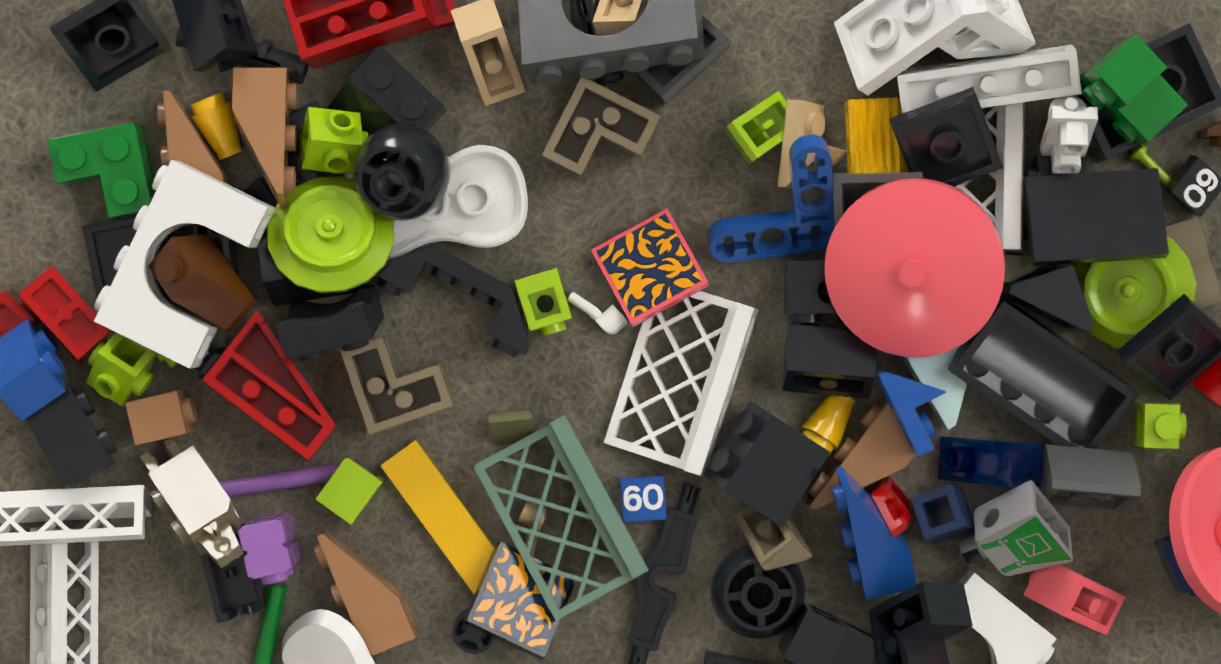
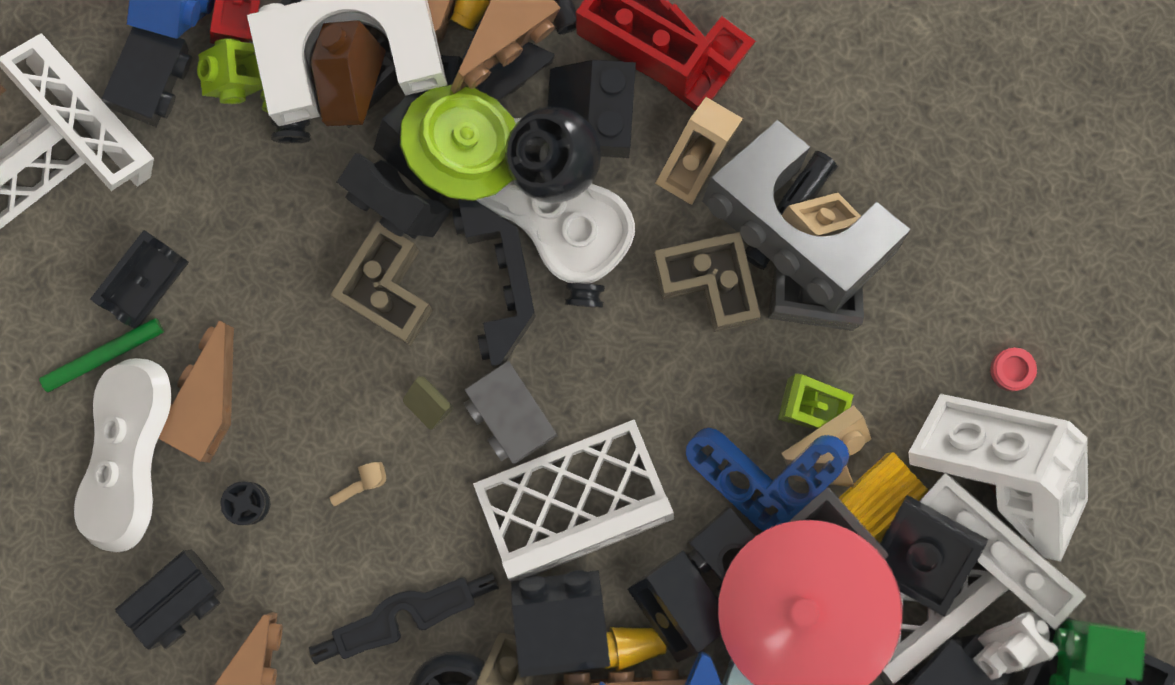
camera: 45 degrees right, 5 degrees down
(161, 416) = (218, 130): medium nougat brick -> none
(197, 502) = (171, 207): hinge -> none
(270, 390) = (305, 195): red wedge -> none
(270, 547) = (181, 292): medium lavender brick -> none
(279, 480) = (233, 252): medium lavender bar -> none
(330, 140) = (533, 84): lime brick -> none
(349, 490) = (276, 318): lime panel -> none
(440, 512) = (314, 416): yellow tile -> none
(512, 606) = (296, 519): tile -> none
(529, 235) = (584, 295): none -> black bush
(534, 287) = (547, 331): lime brick -> none
(573, 370) = (509, 413): none -> flat silver brick
(594, 499) = (422, 513): sand green fence -> none
(610, 320) = (570, 411): white hand -> none
(643, 498) = (454, 550): blue tile -> none
(650, 267) = (637, 407): tile -> none

